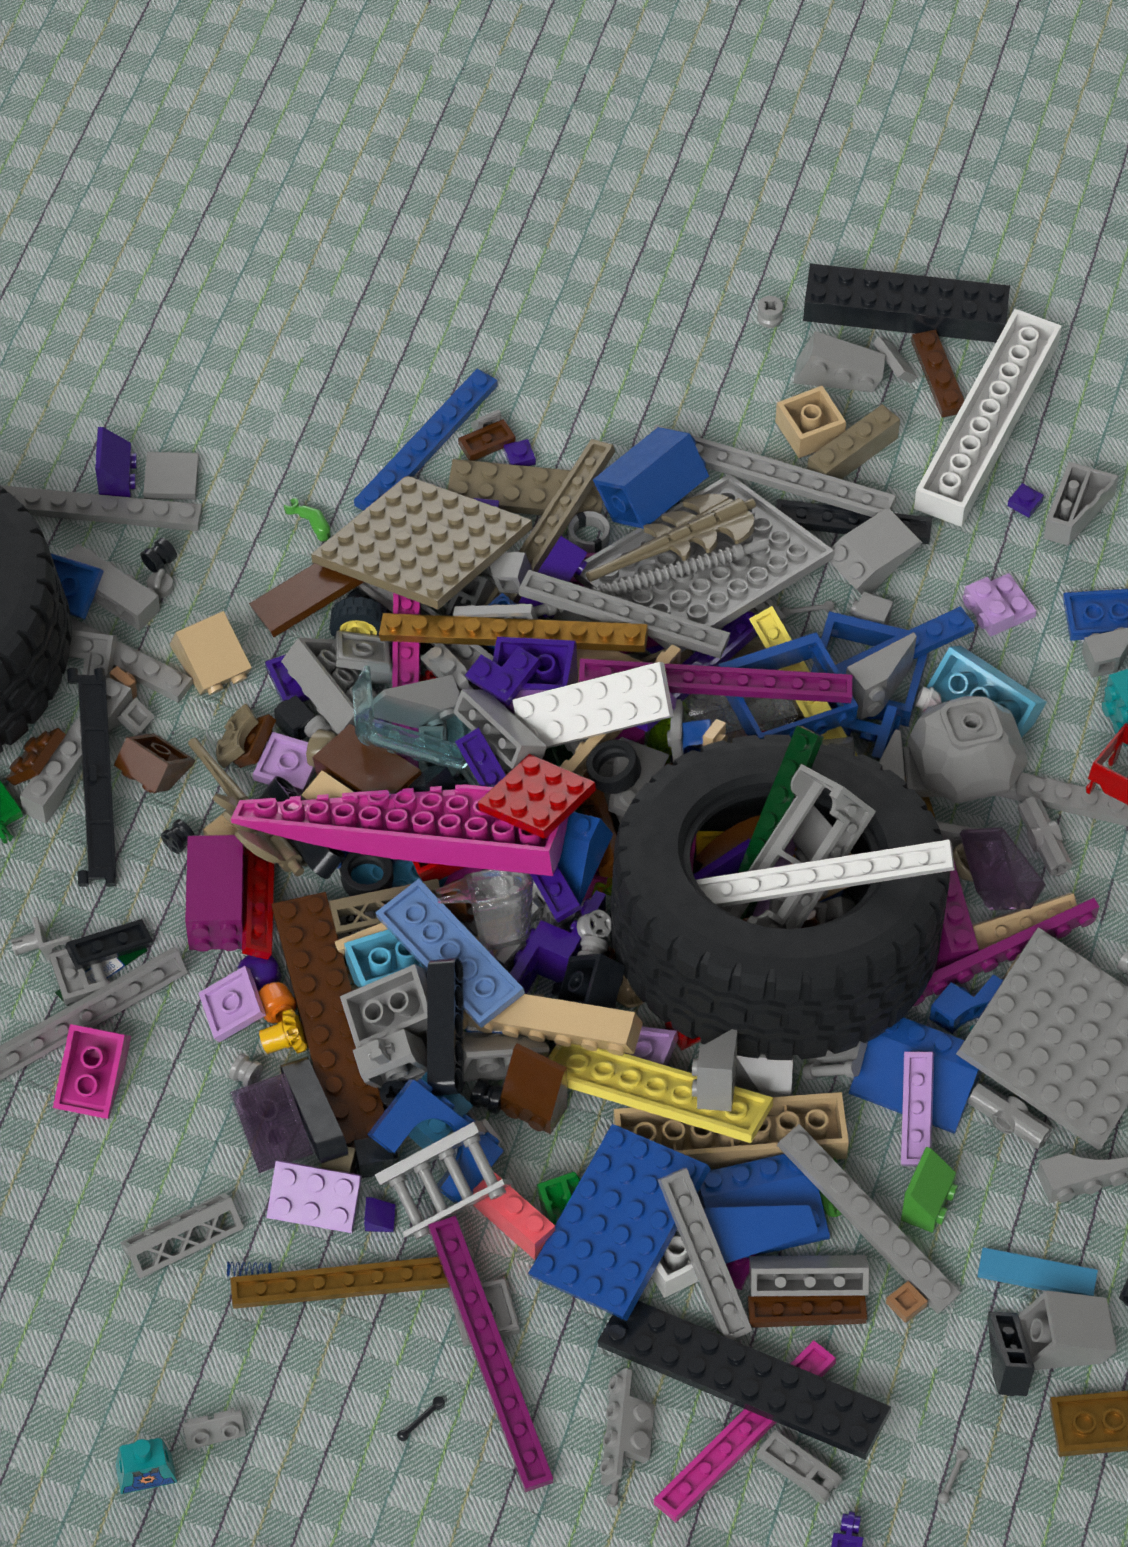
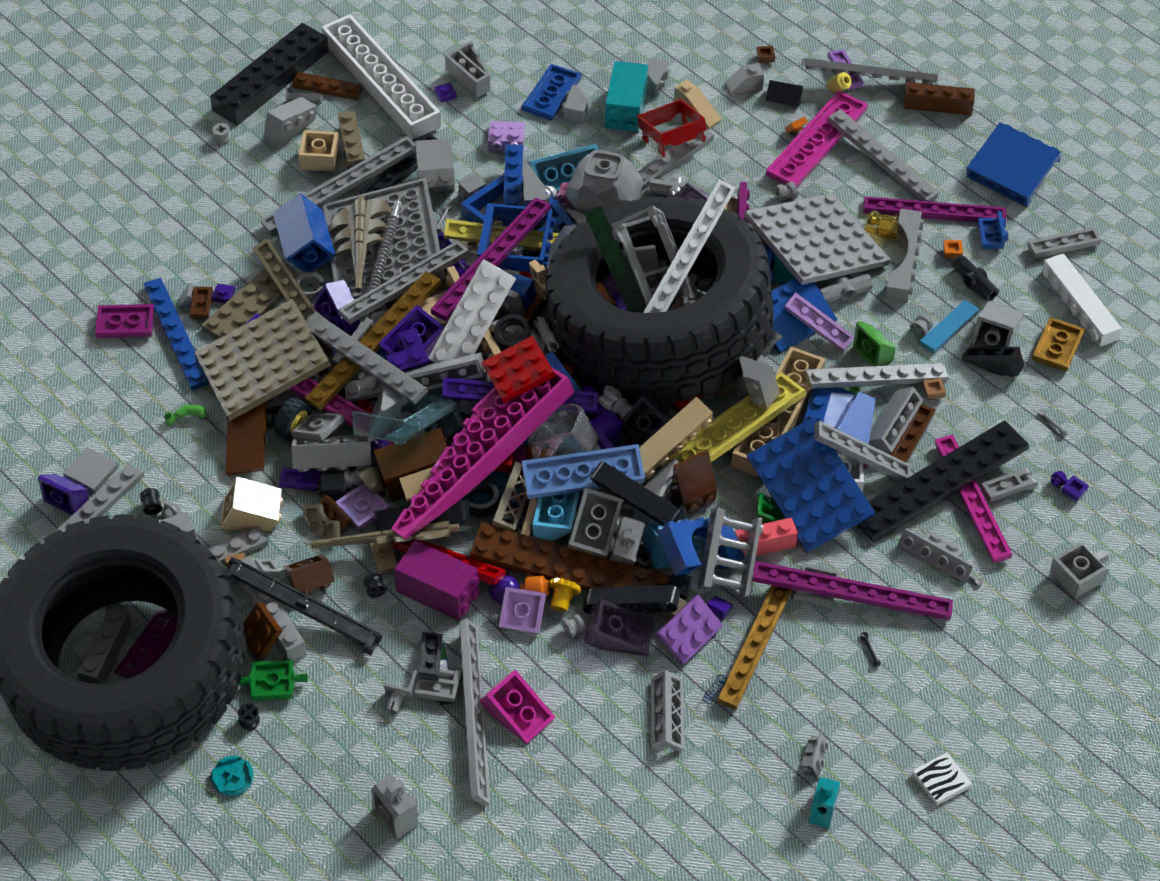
camera: 60 degrees left, 5 degrees down
(406, 383) = (124, 321): none -> magenta plate
(464, 642) = (369, 361): none -> light grey plate
(1008, 1236) = (921, 325): none -> light grey wheel

